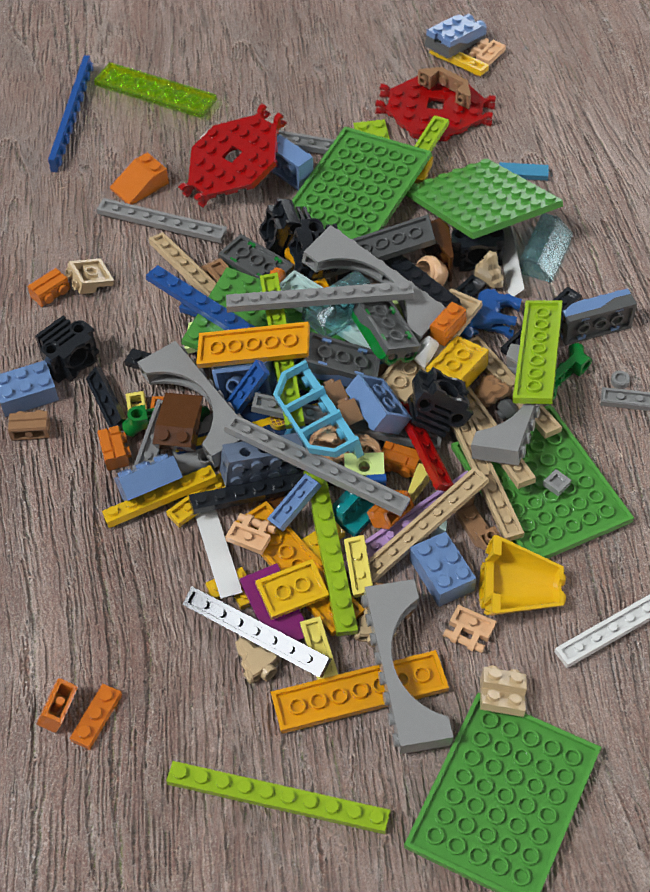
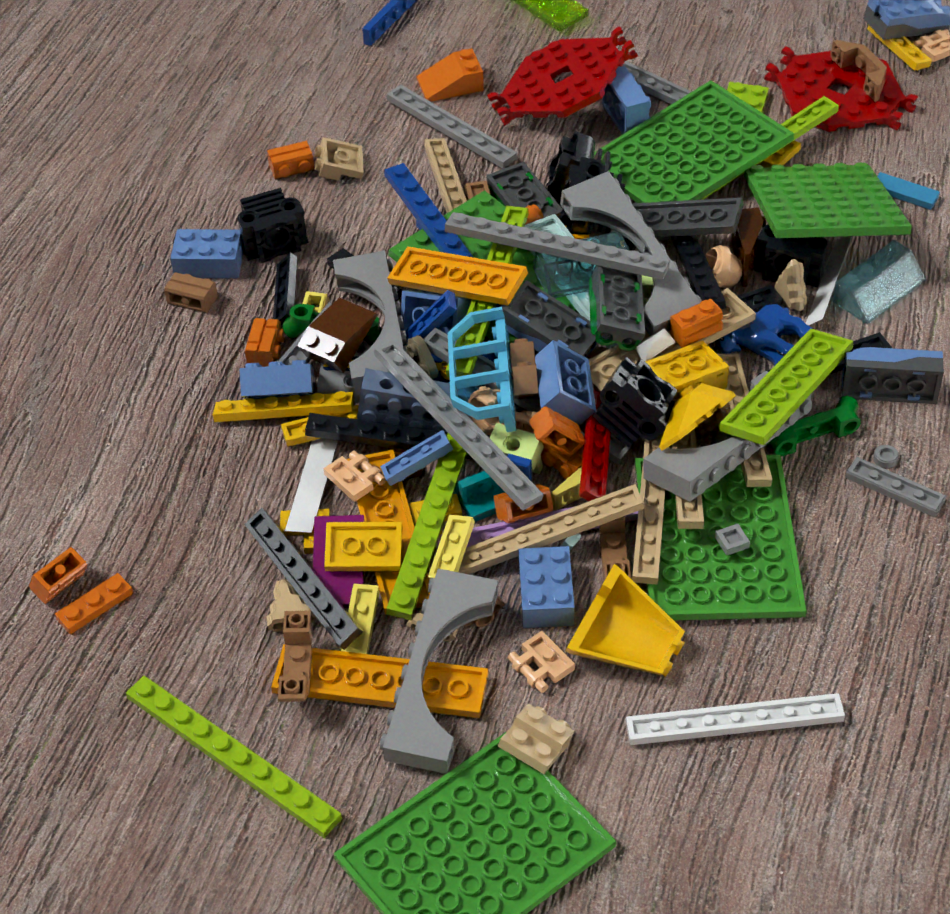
camera: 25 degrees right, 5 degrees down
(252, 414) = (421, 355): none -> dark tan plate
(300, 719) = (296, 676): none -> medium nougat slope
(392, 444) = (557, 431): none -> orange brick
(484, 393) = (692, 409): none -> yellow wedge

